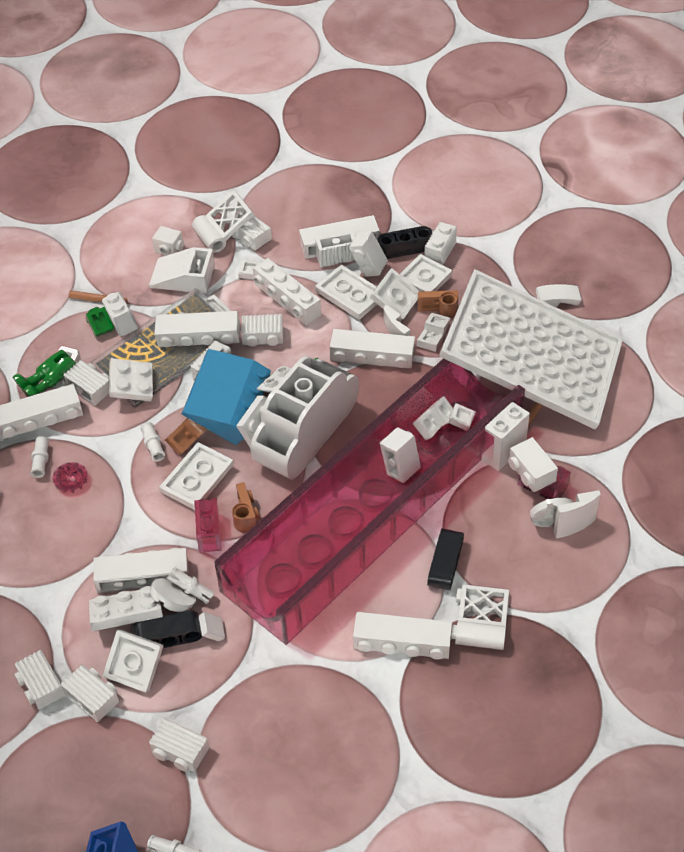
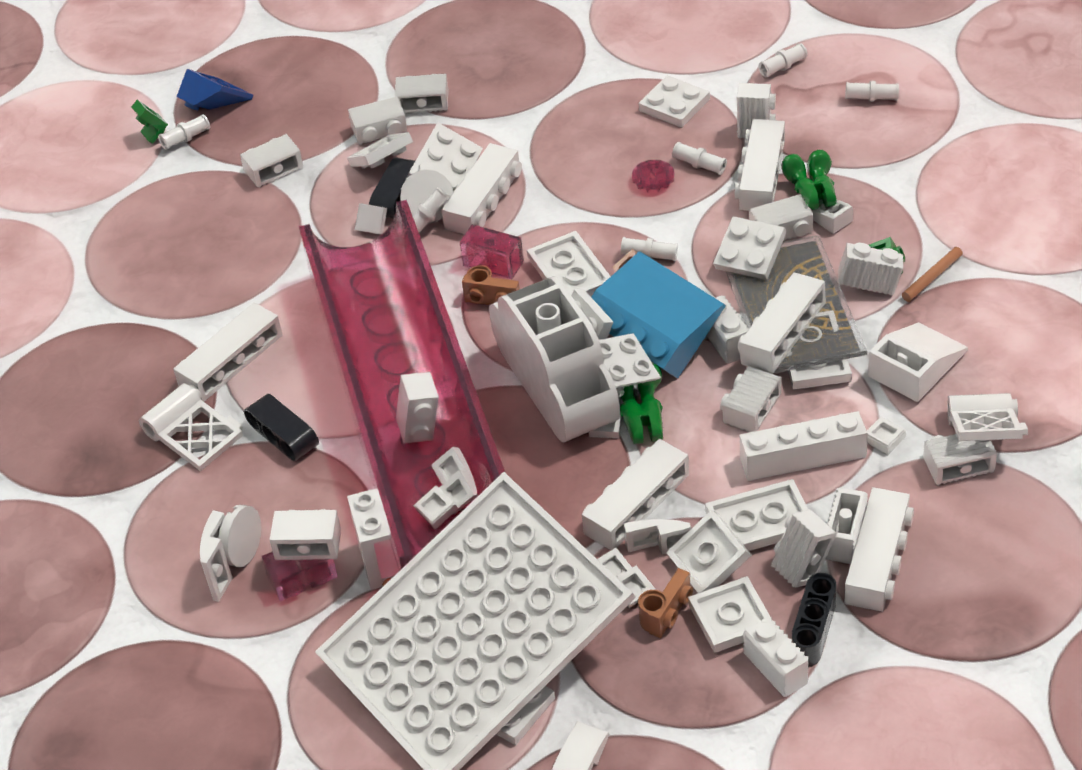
camera: 125 degrees right, 5 degrees down
(167, 241) = (991, 362): white brick -> none

